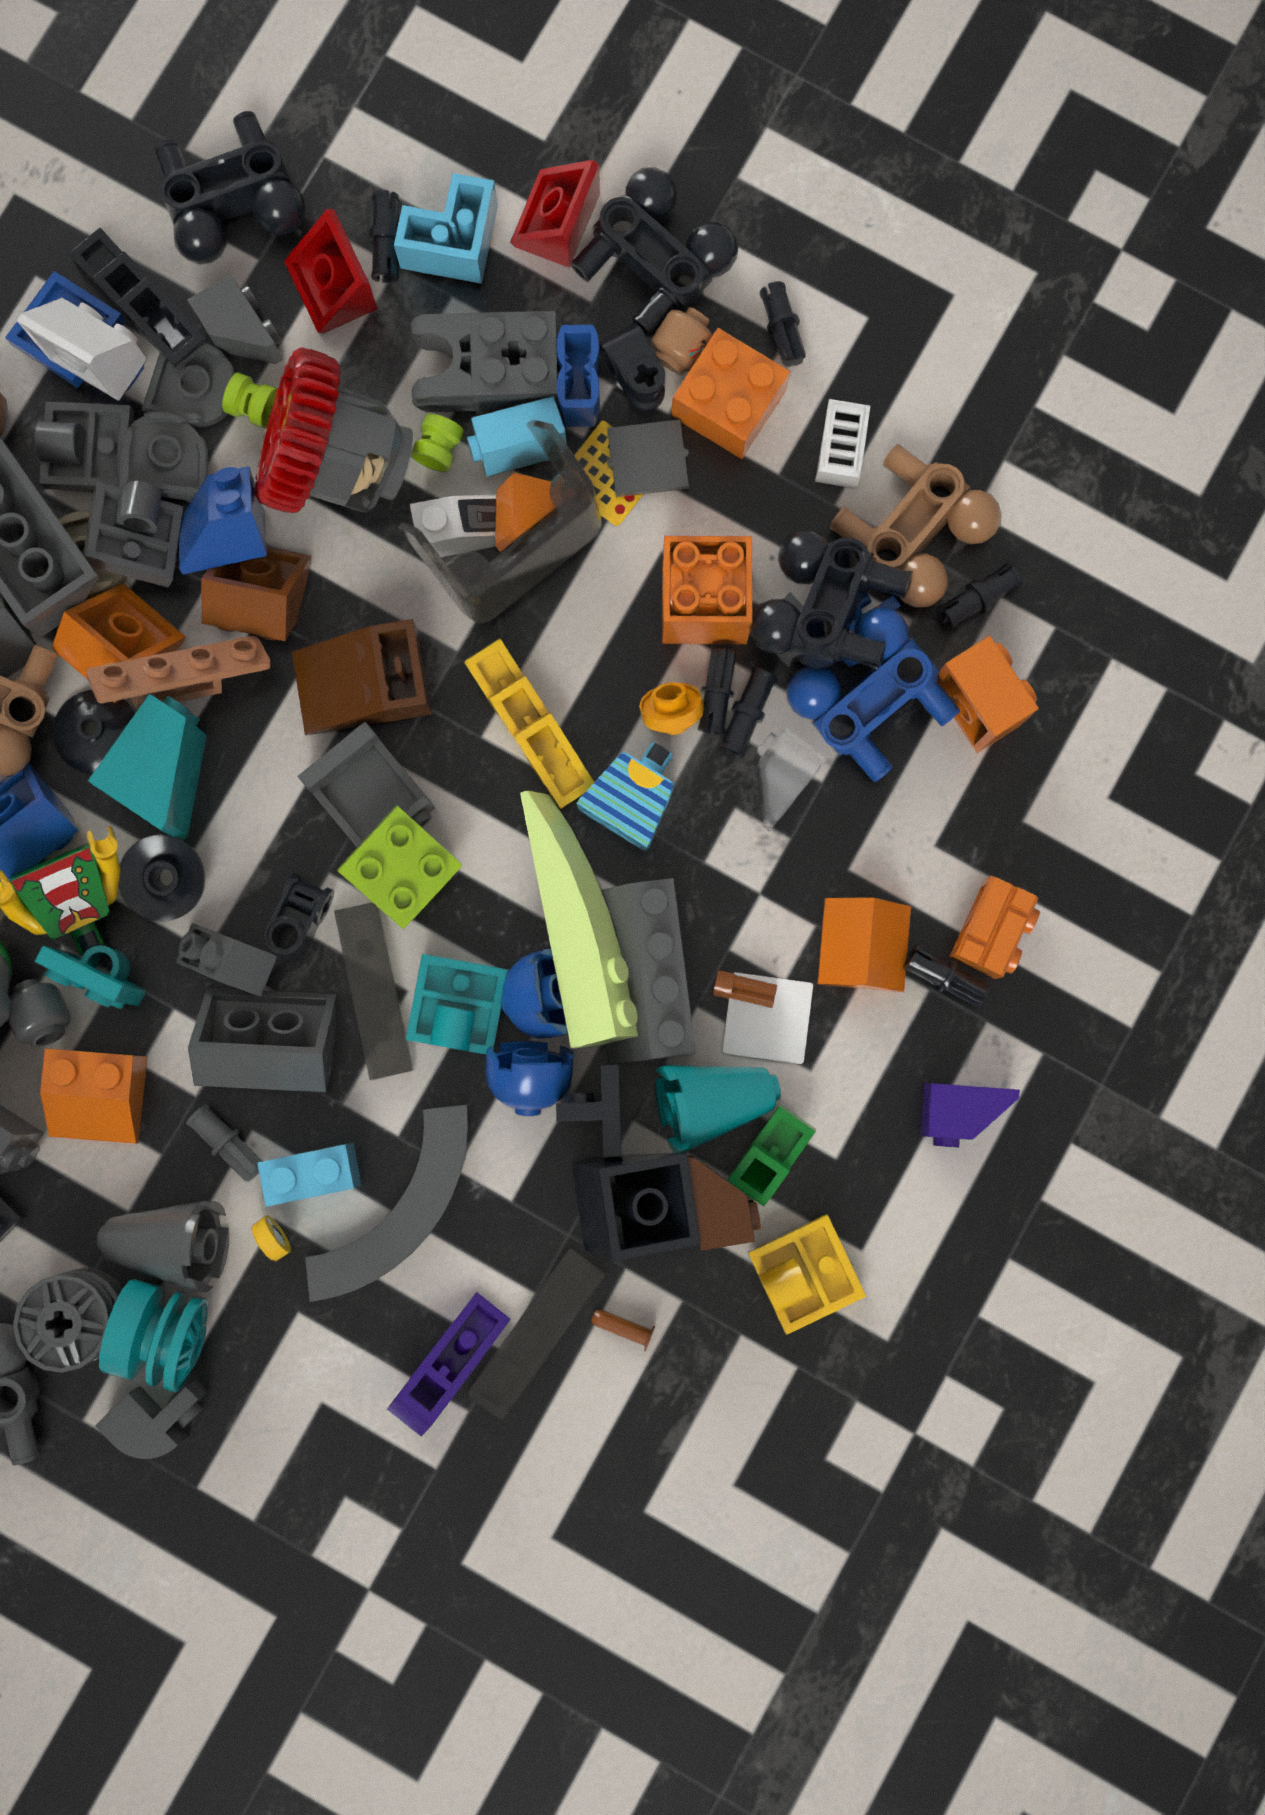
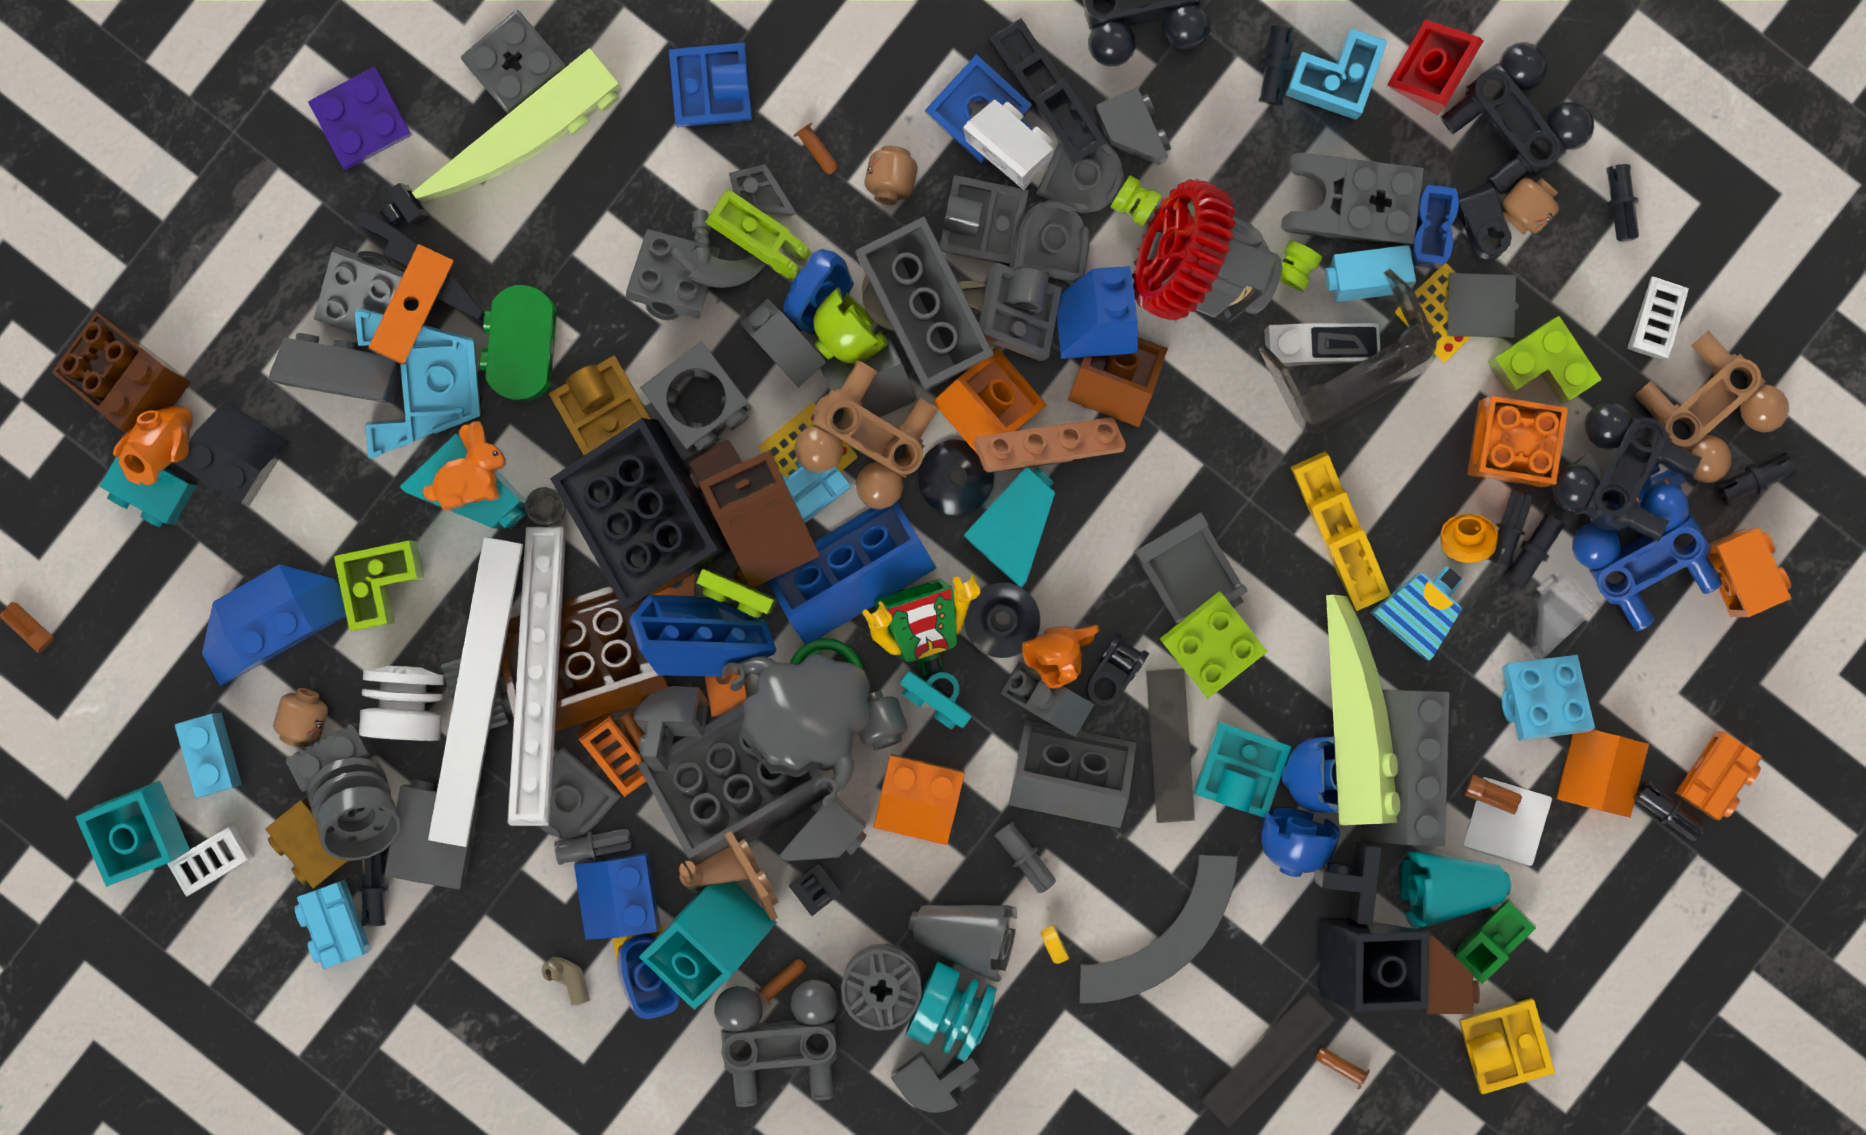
camera: 10 degrees right, 5 degrees up
(227, 905) = (1058, 653): none -> orange animal
(309, 1174) = (1096, 896): medium azure brick -> none
(330, 275) = (1222, 96): red slope -> none
(362, 678) = (1200, 471): reddish brown slope -> none
(448, 1364) = (1190, 1075): dark purple slope -> none
(519, 506) = (1366, 343): orange slope -> none
(727, 493) = (1547, 352): none -> lime brick
(730, 393) = (1565, 262): orange brick -> none
(786, 870) = (1546, 698): none -> medium azure plate
(961, 1111) = (1663, 929): dark purple slope -> none

